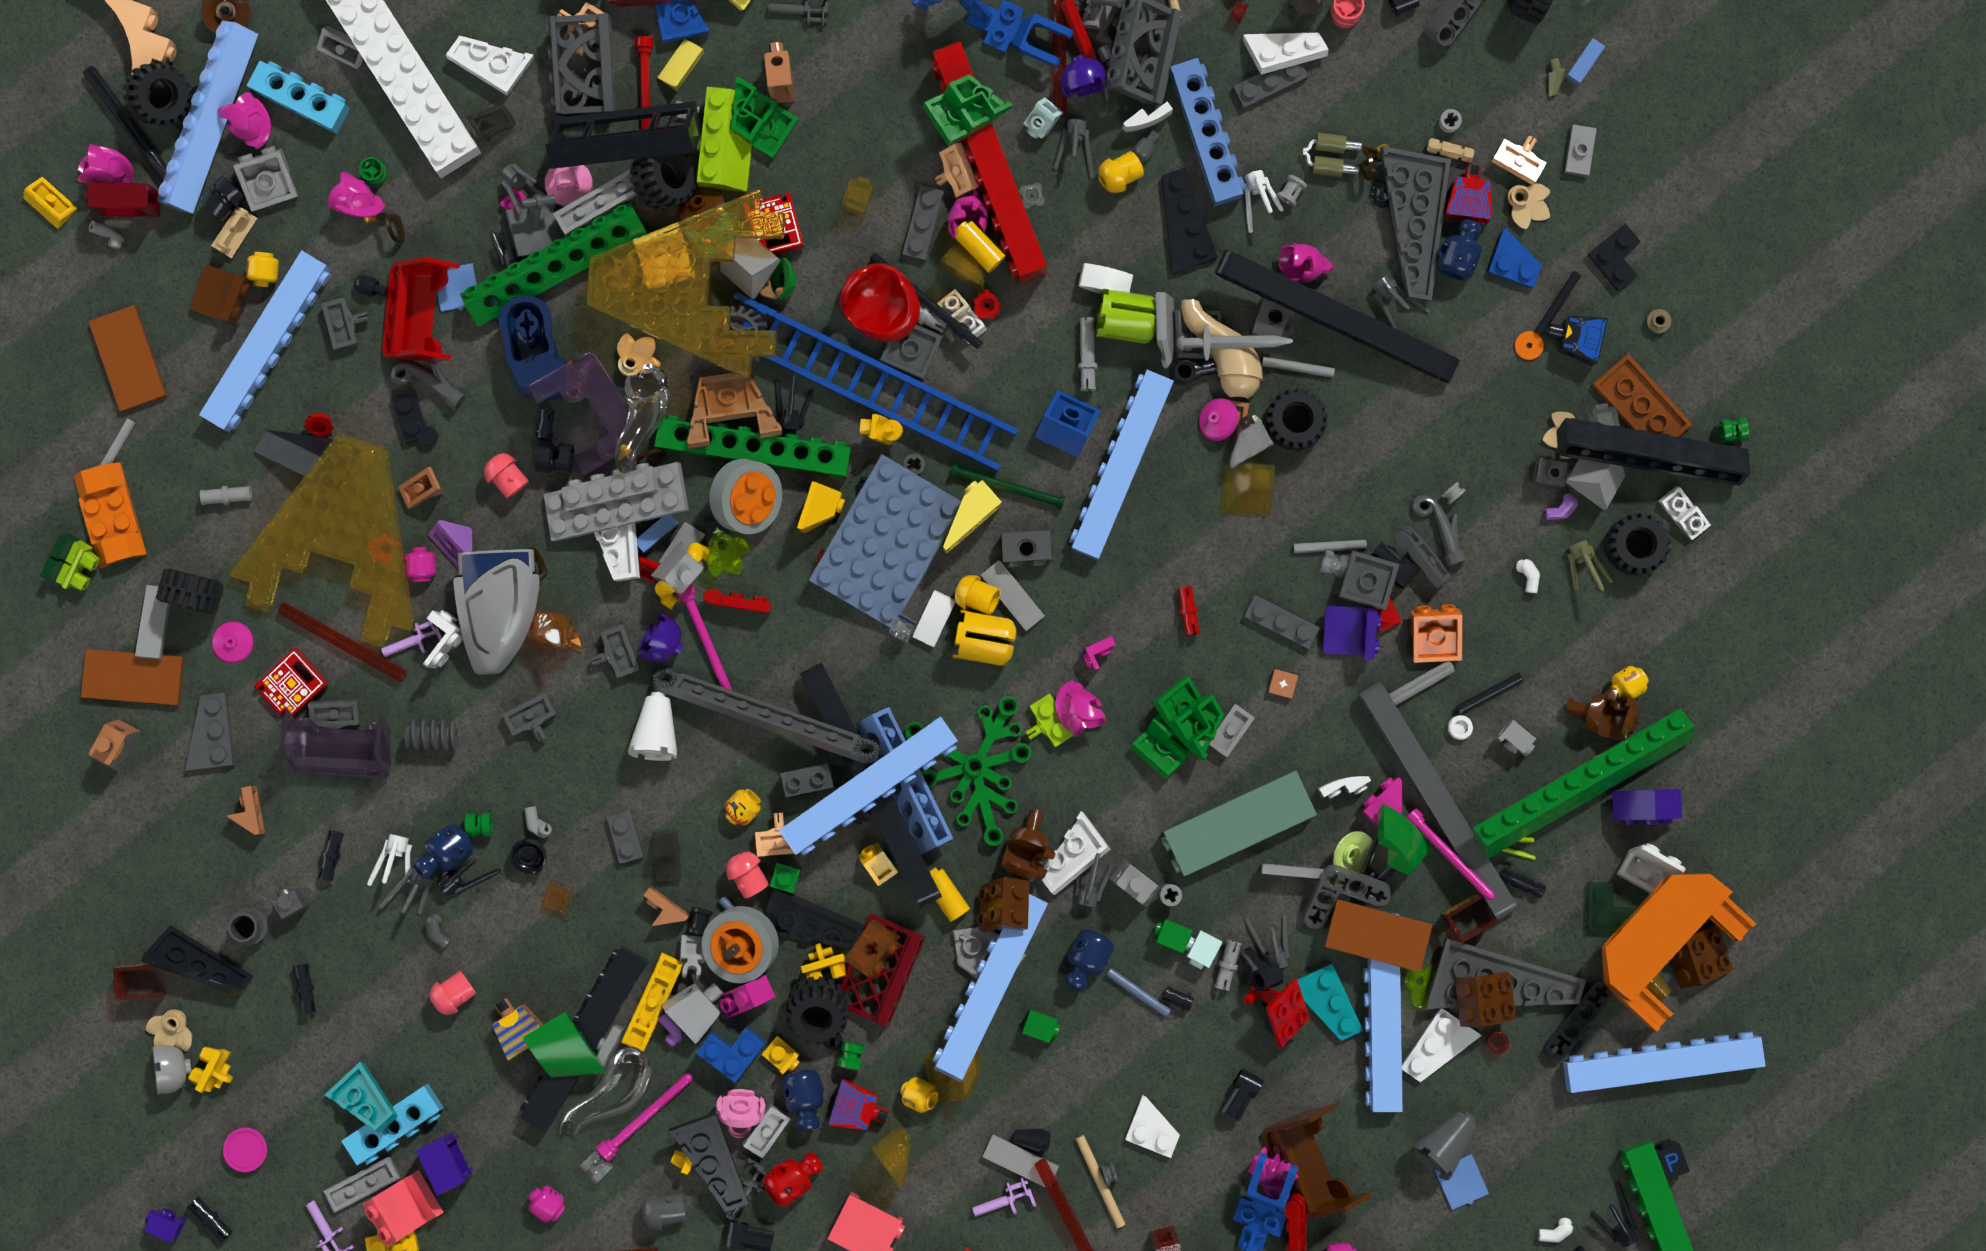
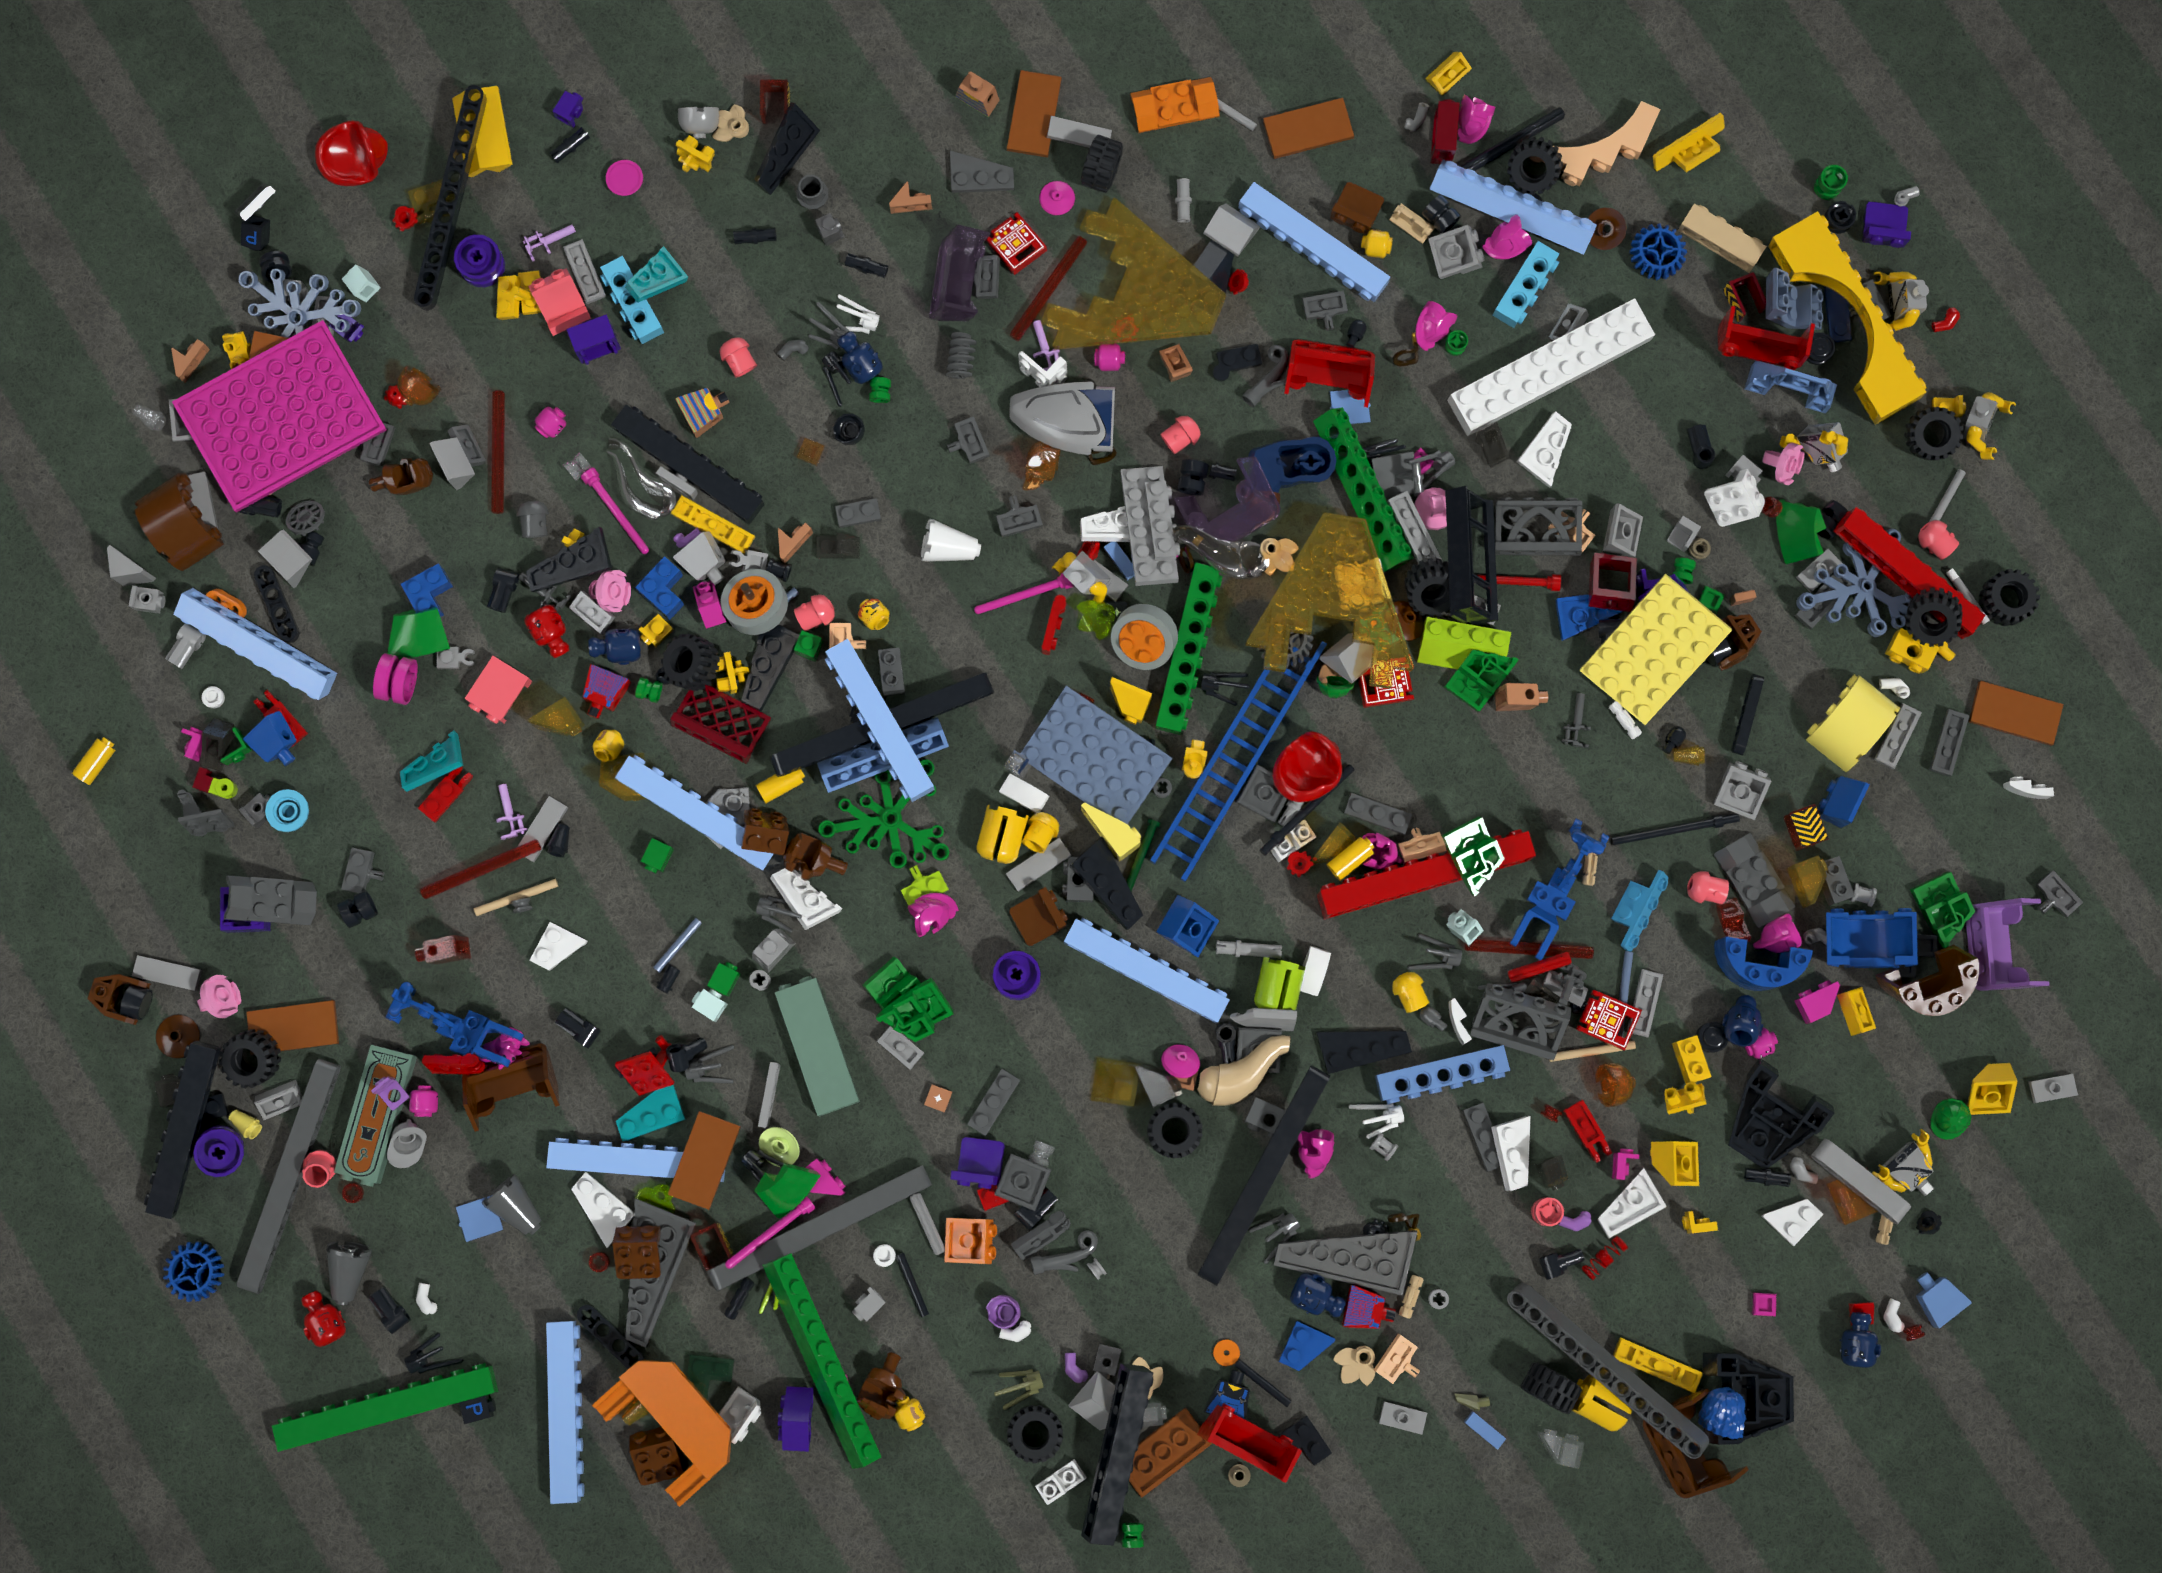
camera: 95 degrees right, 5 degrees down
(68, 561) = (1136, 66): lime hips -> none
(257, 437) = (1231, 229): none -> light grey slope
(451, 539) = (1130, 386): medium lavender slope -> none
(536, 825) = (876, 437): light grey arm -> none
(563, 1049) = (679, 443): green slope -> none
(661, 640) = (1025, 556): dark purple cylinder -> none
(681, 64) = (1534, 613): light yellow slope -> none
(728, 398) = (1232, 628): medium nougat wing -> none
(766, 715) = (950, 639): dark grey plate -> none
(858, 196) = (1405, 758): clear yellow brick -> none
(860, 954) = (735, 704): clear orange brick -> none
(877, 863) = (813, 726): yellow bracket -> none
(1026, 517) = (1102, 875): none -> black wing
(1034, 189) = (1391, 917): clear plate -> none
(1072, 589) = (1038, 917): none -> reddish brown bracket
(1082, 77) = (1499, 965): dark purple cylinder -> none
(1088, 957) = (712, 903): dark blue piece -> none
(1102, 648) = (984, 938): dark pink bracket -> none
(1150, 597) = (1008, 965): none -> dark purple wheel
(1188, 611) = (1010, 1019): red pin -> none
(1228, 965) = (693, 1026): light grey pin -> none
(1230, 342) = (1248, 1075): light grey sword -> none
(1298, 367) = (1223, 1138): light grey bar -> none
(1332, 546) = (1058, 1152): light grey bar -> none
(1335, 144) = (1404, 1183): olive piece -> none
(1336, 886) = (750, 1126): dark grey beam -> none
(1351, 784) = (842, 1152): white slope -> none
(1509, 590) = (1003, 1311): none -> medium lavender hair
(1627, 307) = (1250, 1442): none -> red windscreen

